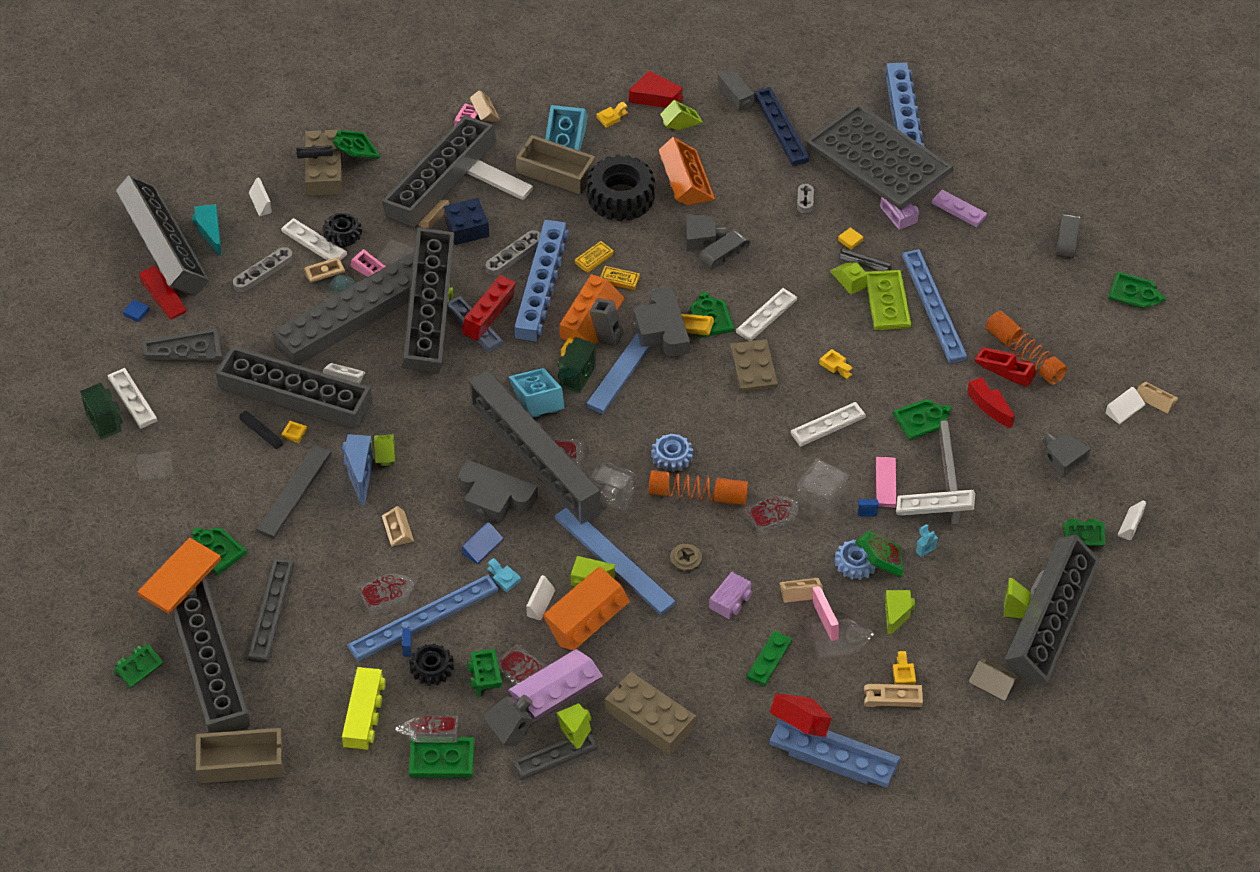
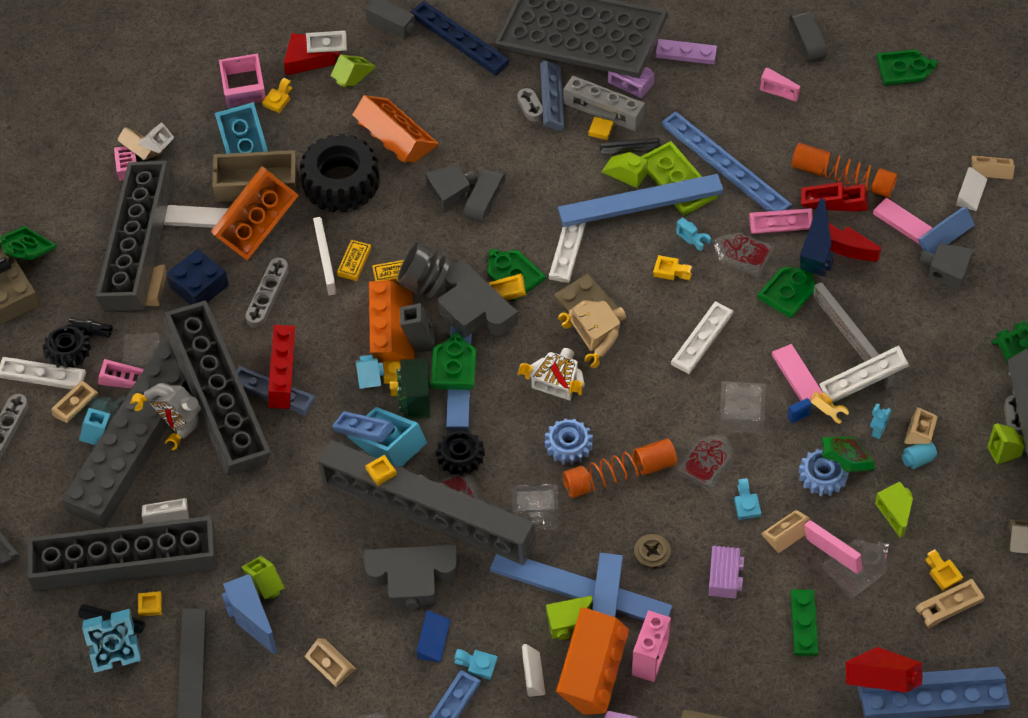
camera: 25 degrees left, 5 degrees up
(249, 441) = (111, 640): none -> medium azure brick
(326, 289) = (94, 426): none -> medium azure brick
(368, 224) = (91, 327): none -> black pin
(389, 299) = (174, 406): none -> light grey torso
(499, 108) = (157, 138): none -> white slope
(509, 406) = (381, 470): none -> yellow tile
(522, 375) = (363, 426): none -> medium blue tile
(536, 190) = (254, 213): none -> orange slope
(541, 280) = (307, 281): medium blue brick -> none
(551, 338) = (369, 371): none -> medium azure brick
(572, 244) = (324, 254): none -> white tile
(584, 425) = (456, 462): none -> black gear
(590, 103) = (245, 94): none -> bright pink window
(619, 361) = (453, 364): none -> green tile
(630, 619) = (650, 644): none -> bright pink window
(635, 563) = (607, 583): none -> medium blue tile
(637, 282) = (427, 272): none -> dark grey wheel
(671, 86) = (326, 41): none -> white slope
(692, 400) = (555, 374): none -> torso
(745, 378) = (596, 325): none -> tan torso
(782, 557) = (746, 504): none -> medium azure plate
(826, 198) = (552, 96): none -> sand blue tile
(844, 303) = (640, 200): none -> medium blue tile
(863, 219) = (604, 103): none -> light grey brick
(868, 342) = (690, 234): none -> medium azure plate
(891, 513) = (825, 404): none -> yellow plate
(903, 376) = (743, 252): none -> clear tile
(942, 580) = (919, 455): none -> medium azure brick
(949, 365) = (780, 221): none -> bright pink tile
(956, 560) = (921, 427): none -> tan slope
(959, 389) = (816, 252): none -> dark blue slope
(1015, 261) = (779, 85): none -> bright pink slope
(1052, 407) = (901, 219): none -> bright pink tile
(1082, 427) = (947, 230): none -> medium blue tile

